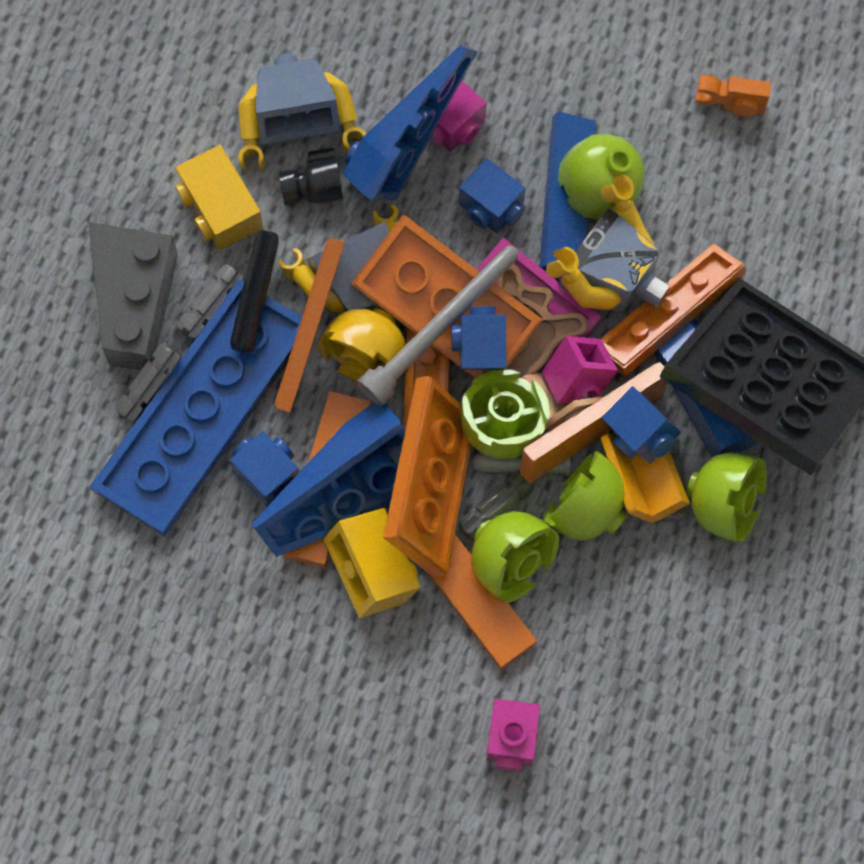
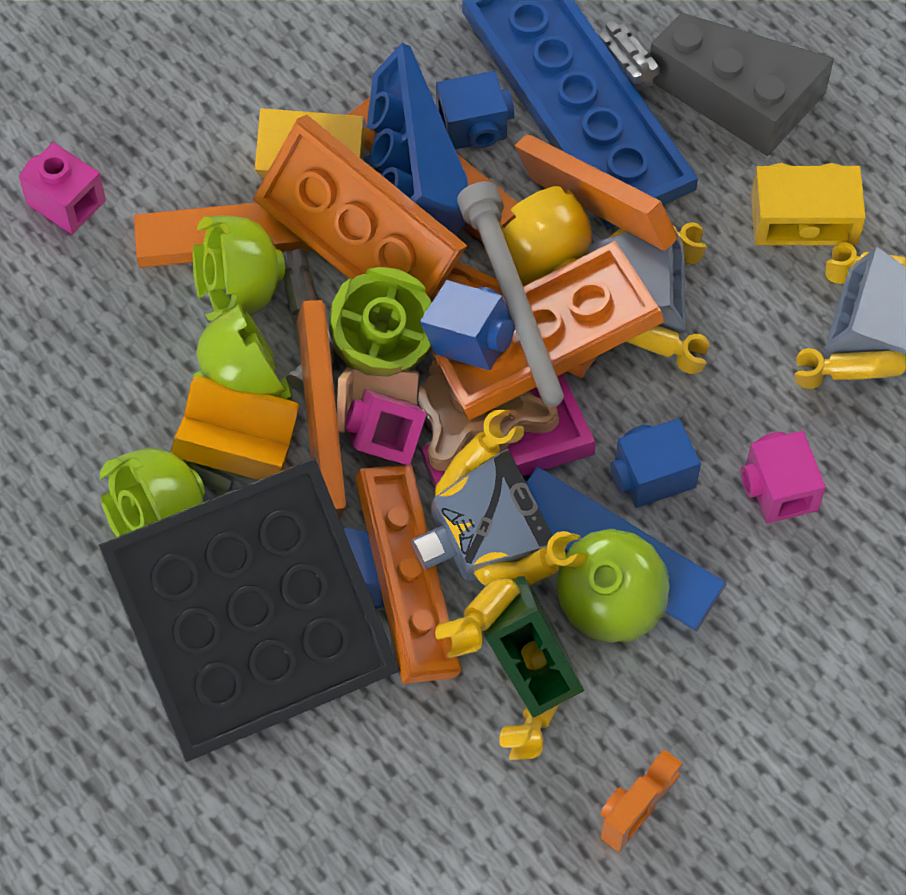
camera: 120 degrees right, 10 degrees down
(208, 302) = (694, 151): flat silver axle -> none
(254, 291) = (671, 176): black axle -> none
(318, 181) = (776, 310): black piece -> none
(392, 148) = (766, 380): blue wedge -> none
(640, 426) = (276, 435): blue brick -> none
(694, 194) = (527, 651): none -> torso

